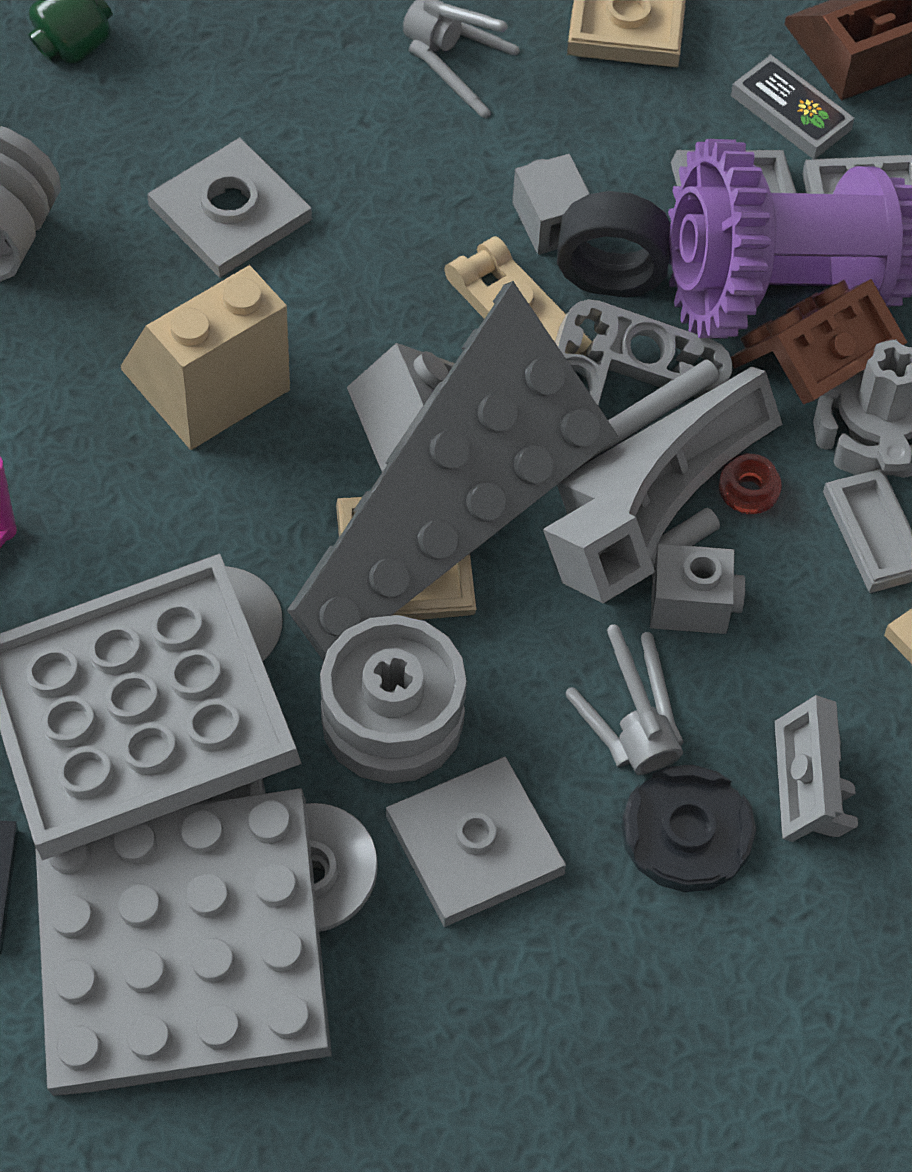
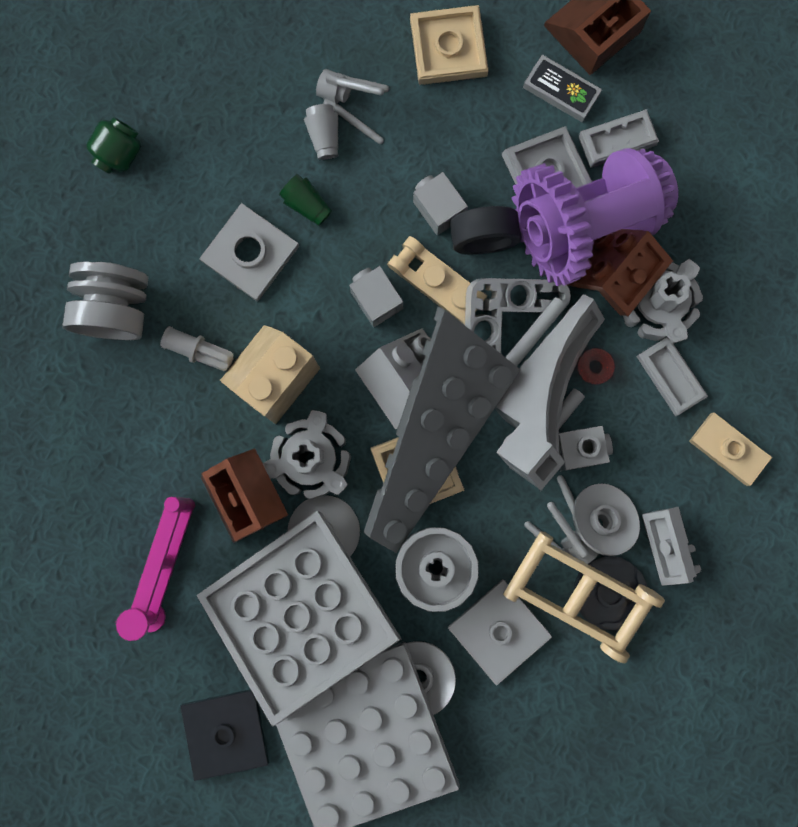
camera: 10 degrees left, 25 degrees up
(94, 308) = (196, 349): none -> light grey axle
(101, 508) = (243, 494): none -> copper slope
(229, 491) = (317, 469): none -> light grey piece
(341, 154) = (304, 199): none -> dark green cone
(399, 72) = (323, 130): none -> light grey cone
(413, 301) = (375, 295): none -> light grey brick
(707, 700) = (618, 515): none -> light grey dish
(741, 822) = (611, 645): none -> tan piece

